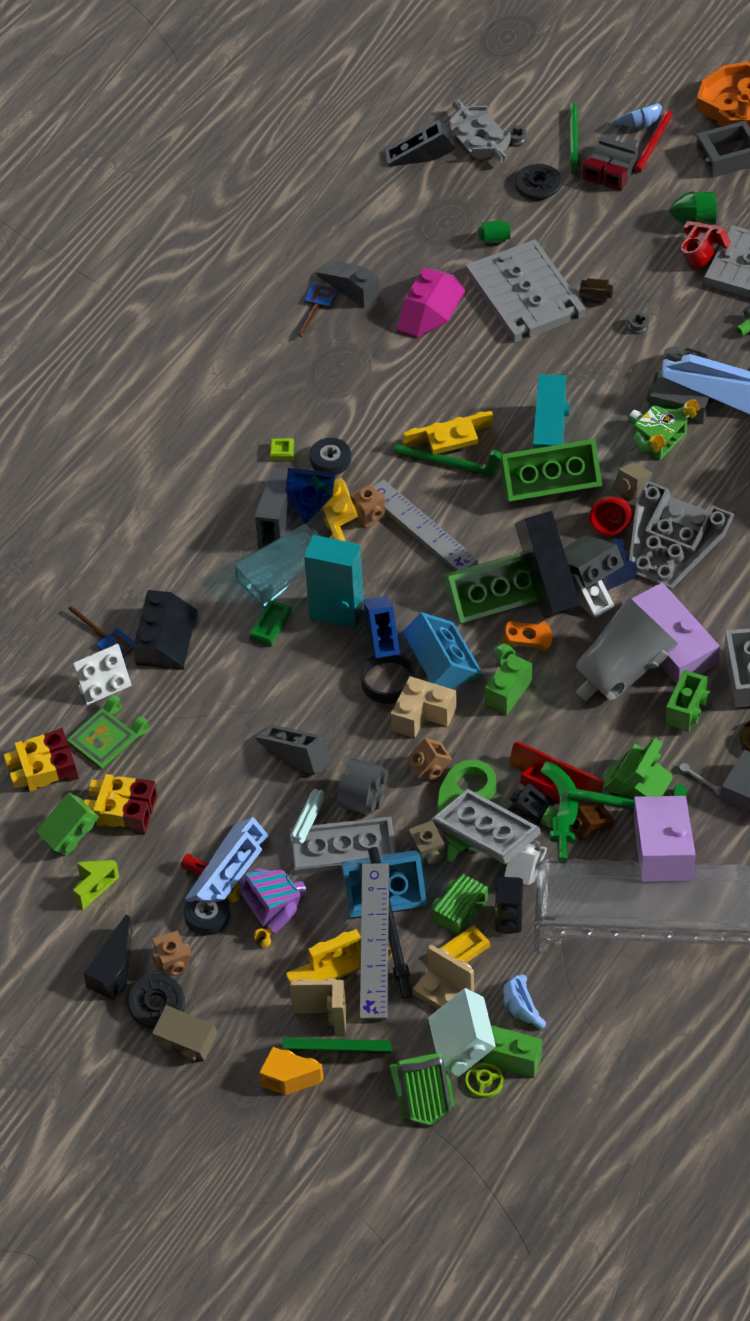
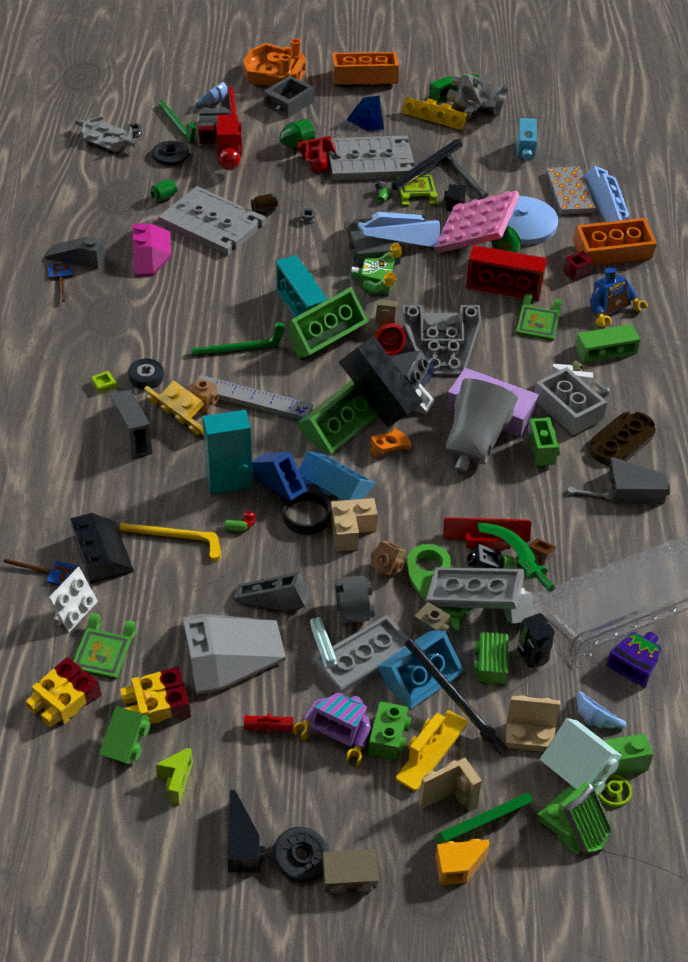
camera: 35 degrees left, 5 degrees down
(171, 954) = (290, 806): medium nougat brick -> none
(209, 924) = (292, 768): black bush -> none
(216, 784) = (230, 649): none -> light grey wedge
(229, 862) = (285, 706): light blue wedge -> none
(270, 623) = (182, 509): green tile -> none
(274, 566) = (159, 464): clear light blue slope -> none
(276, 664) = (209, 537): none -> yellow piece
(309, 491) = (156, 398): clear blue slope -> none
(309, 926) = (388, 731): none -> bright green brick
(317, 664) = (242, 525): none -> arm
(374, 942) = (456, 715): light grey tile -> none
(424, 145) = (70, 153): black slope -> none
(450, 434) = (229, 327): yellow bracket -> none
(467, 944) = (518, 685): yellow tile -> none
(502, 652) = (381, 461): bright green hinge -> none
(508, 684) = (404, 480): bright green brick -> none
(605, 193) = (229, 141): none -> red brick
(605, 966) = (635, 657): none -> dark purple torso
(638, 773) = (548, 504): bright green piece -> none
(664, 838) = (611, 541): lavender brick -> none
(678, 790) = (586, 524): green piece -> none

